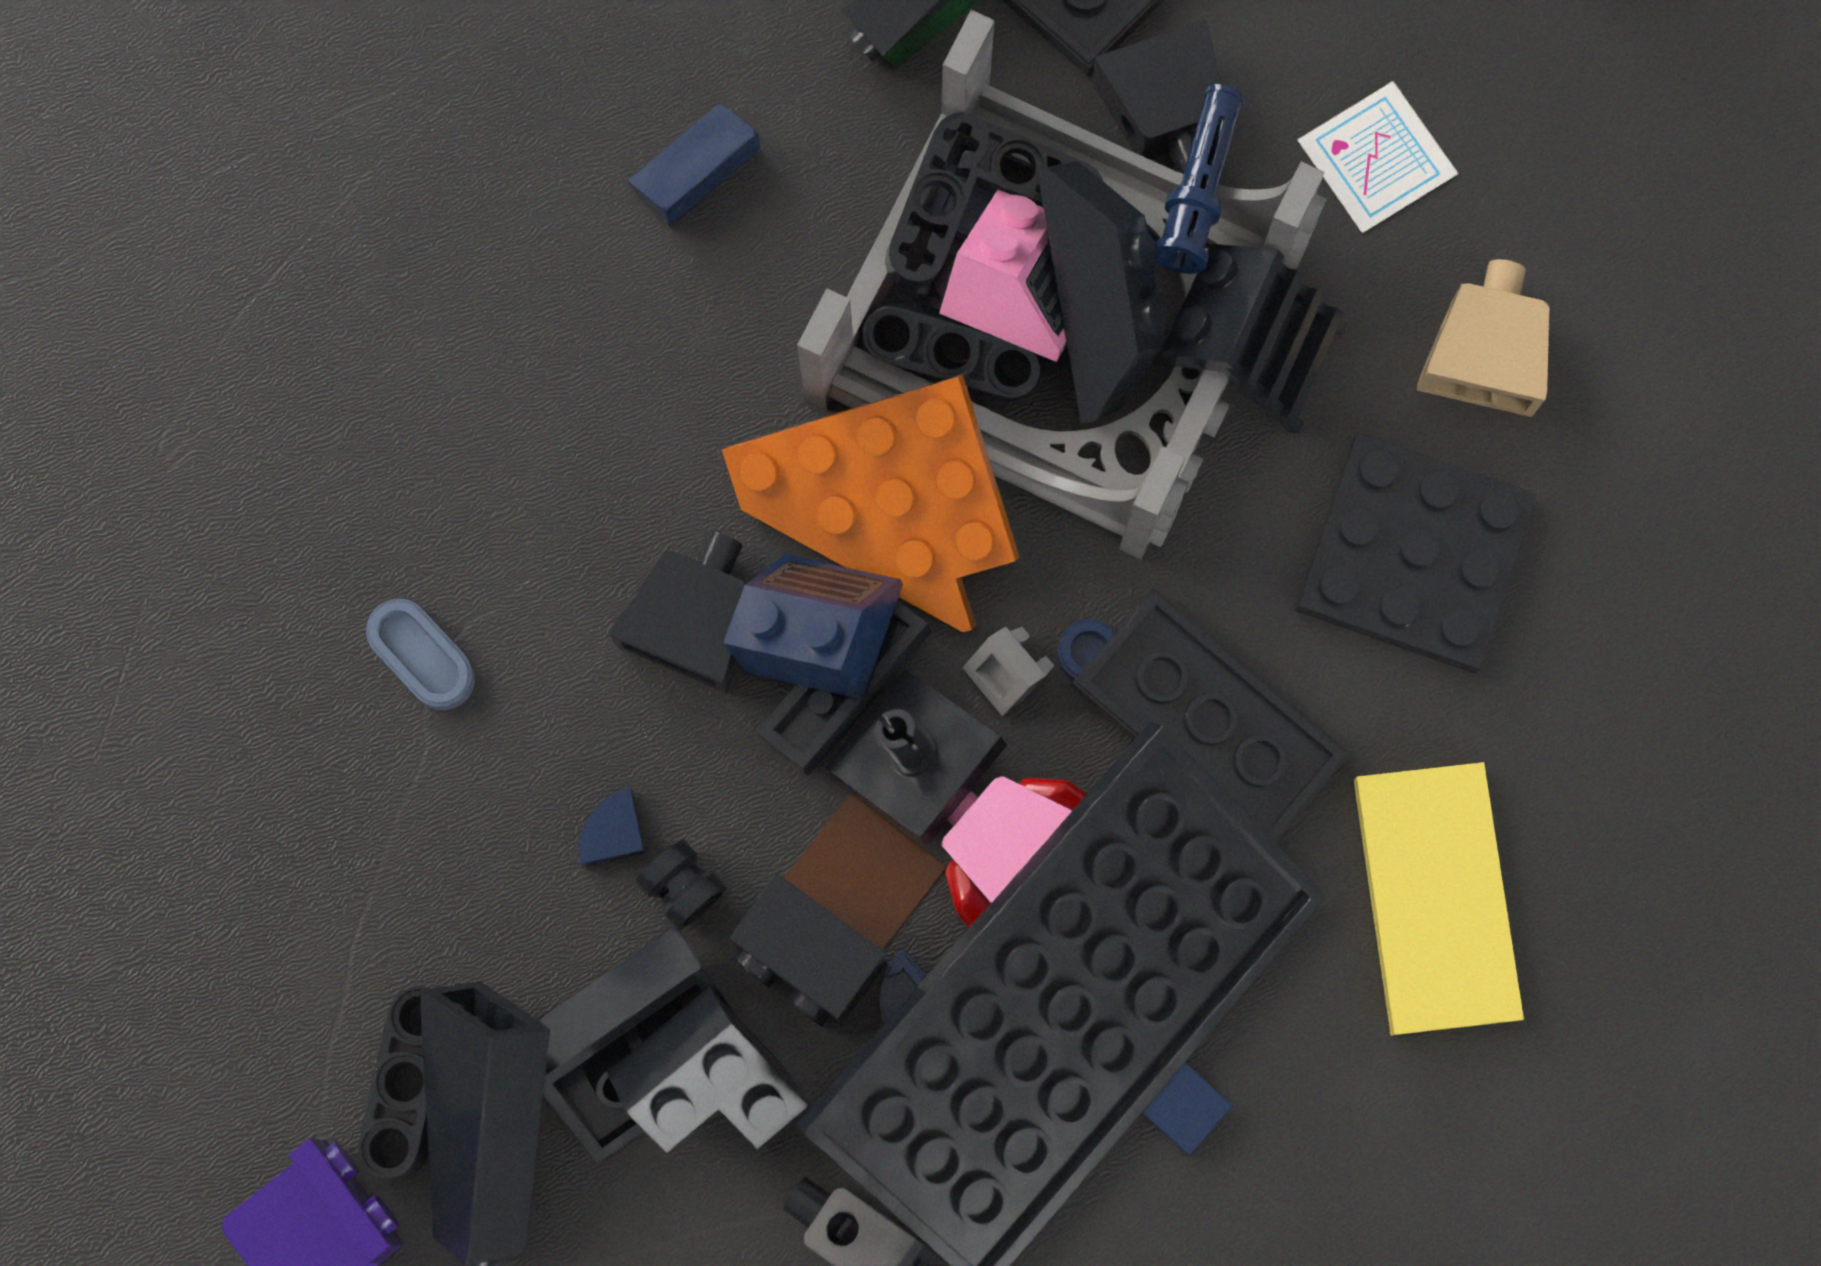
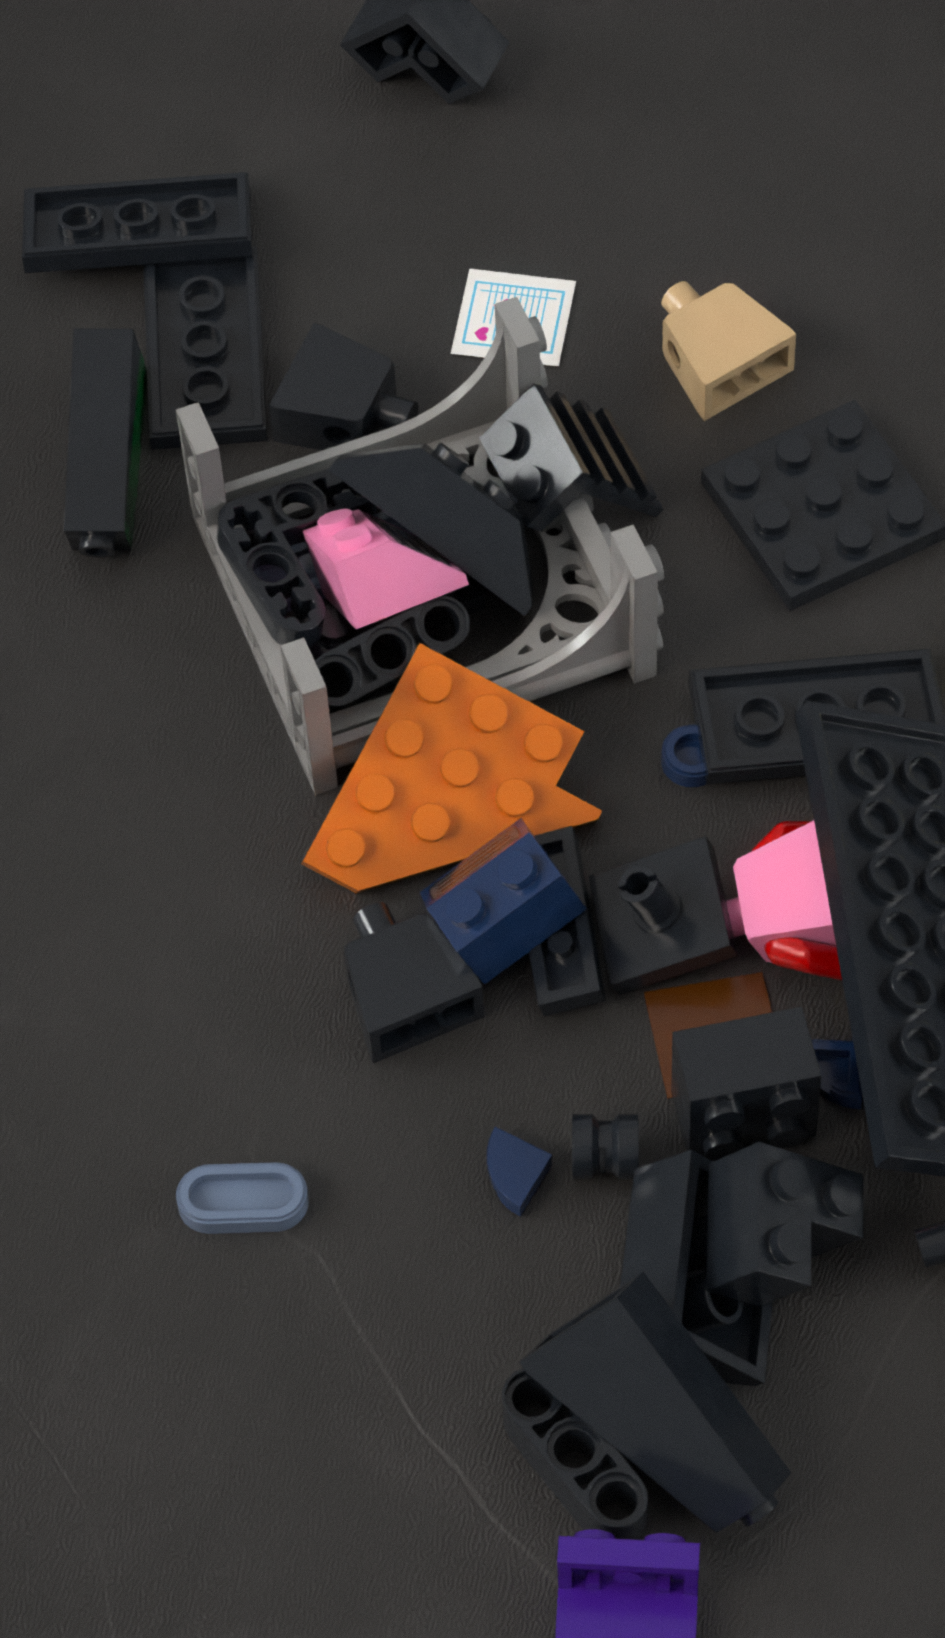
camera: 45 degrees left, 20 degrees down
(695, 163) = (64, 722): dark blue slope -> none
(1006, 669) = (655, 810): light grey tile -> none
(1194, 204) = (443, 415): dark blue pin -> none

